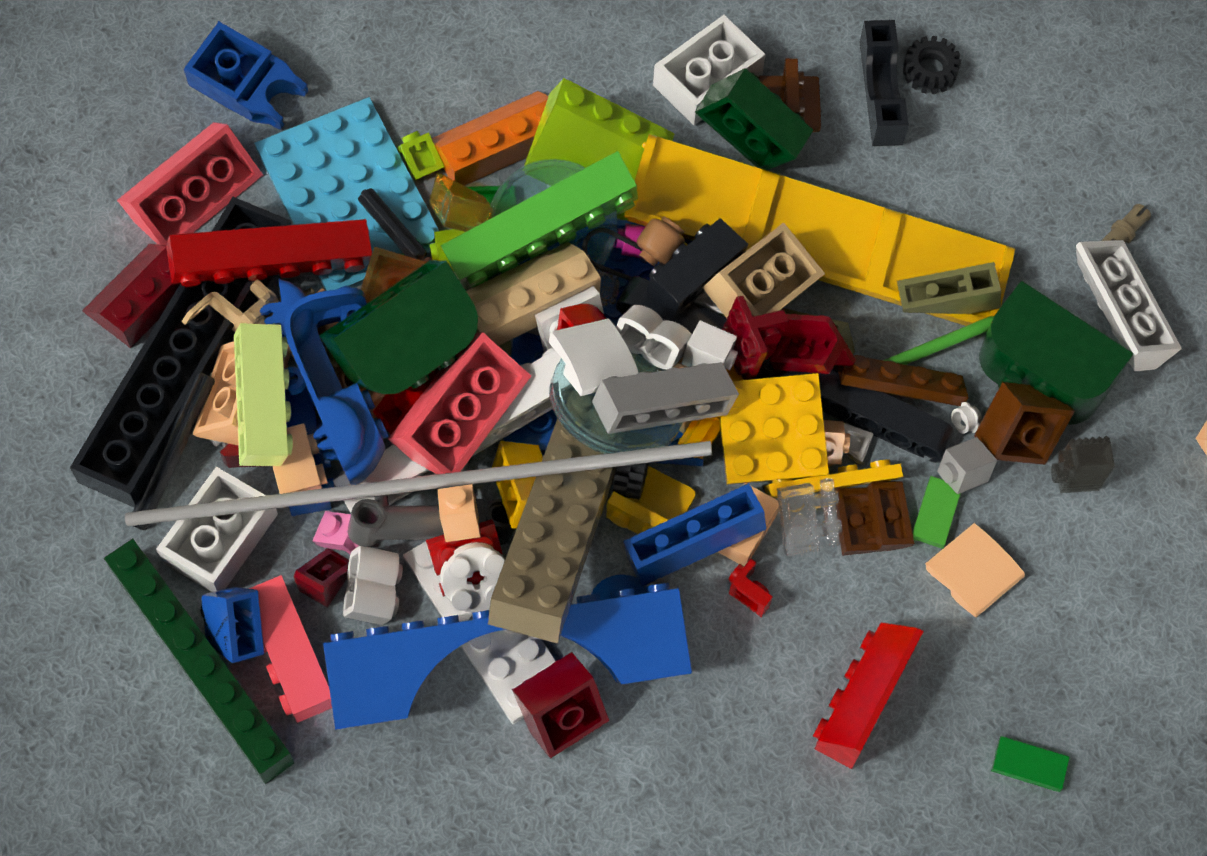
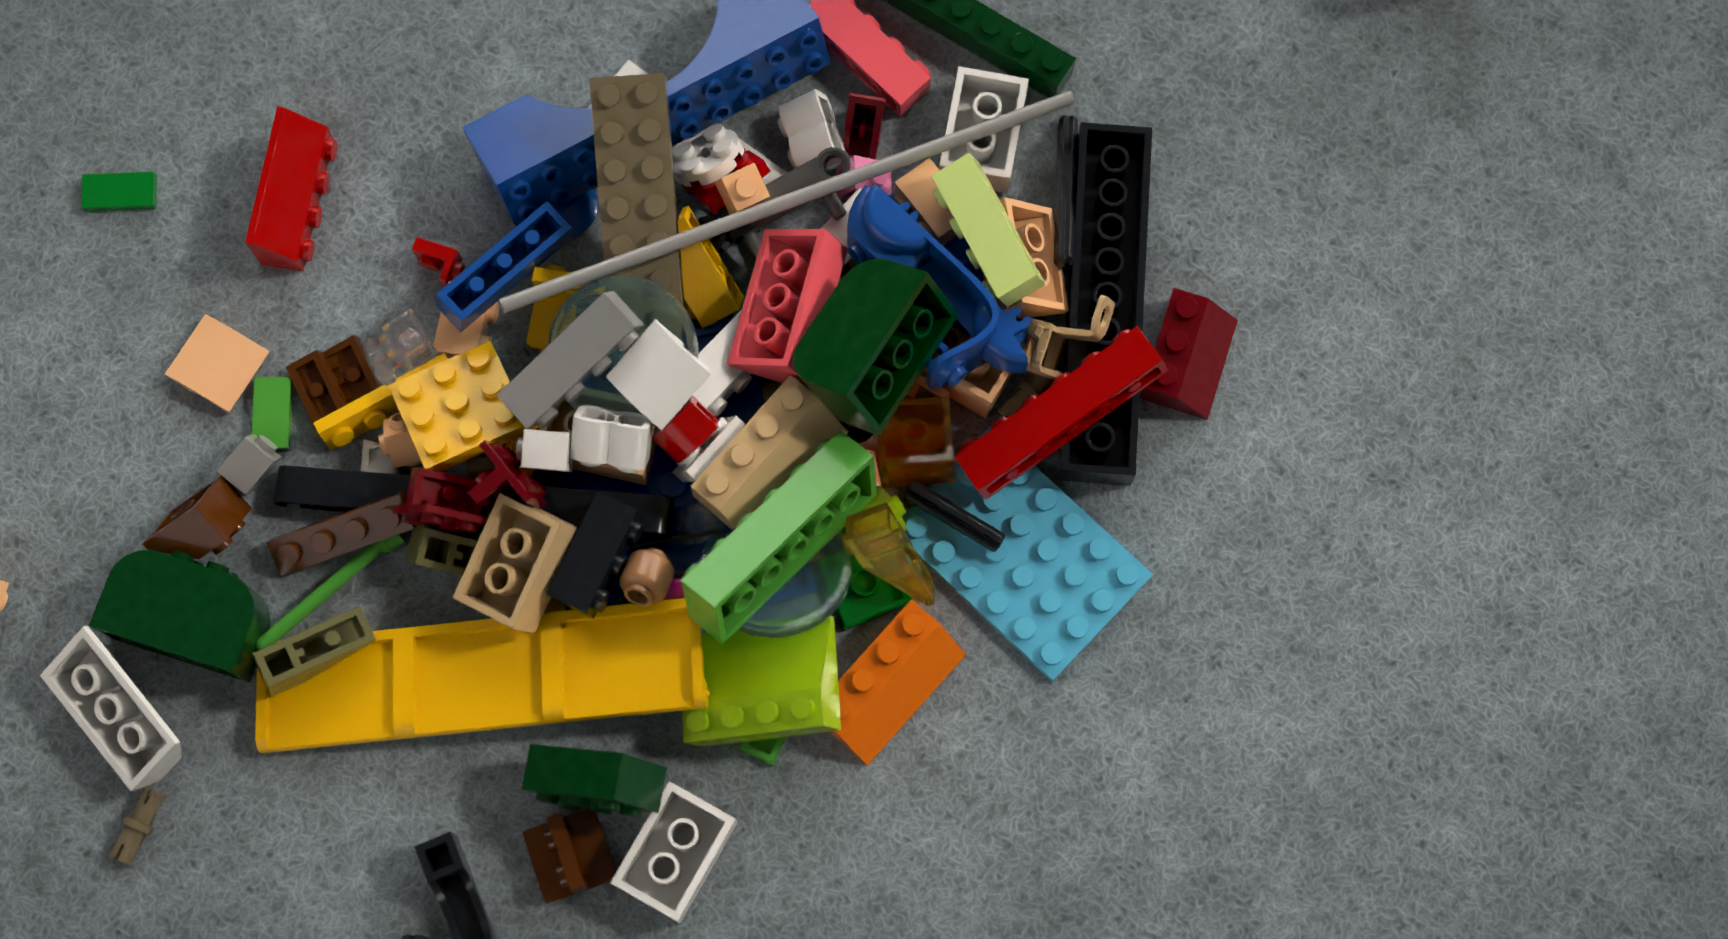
camera: 160 degrees right, 10 degrees up
(191, 185) = (1195, 494): coral slope -> none
(233, 623) = (934, 50): blue torso -> none
(241, 75) = (1190, 644): blue brick -> none
(420, 154) = (966, 626): lime bracket -> none
(561, 704) = (588, 57): dark red brick -> none
(969, 415) = (264, 526): white plate -> none
(1083, 465) = (124, 500): clear smoke brick -> none

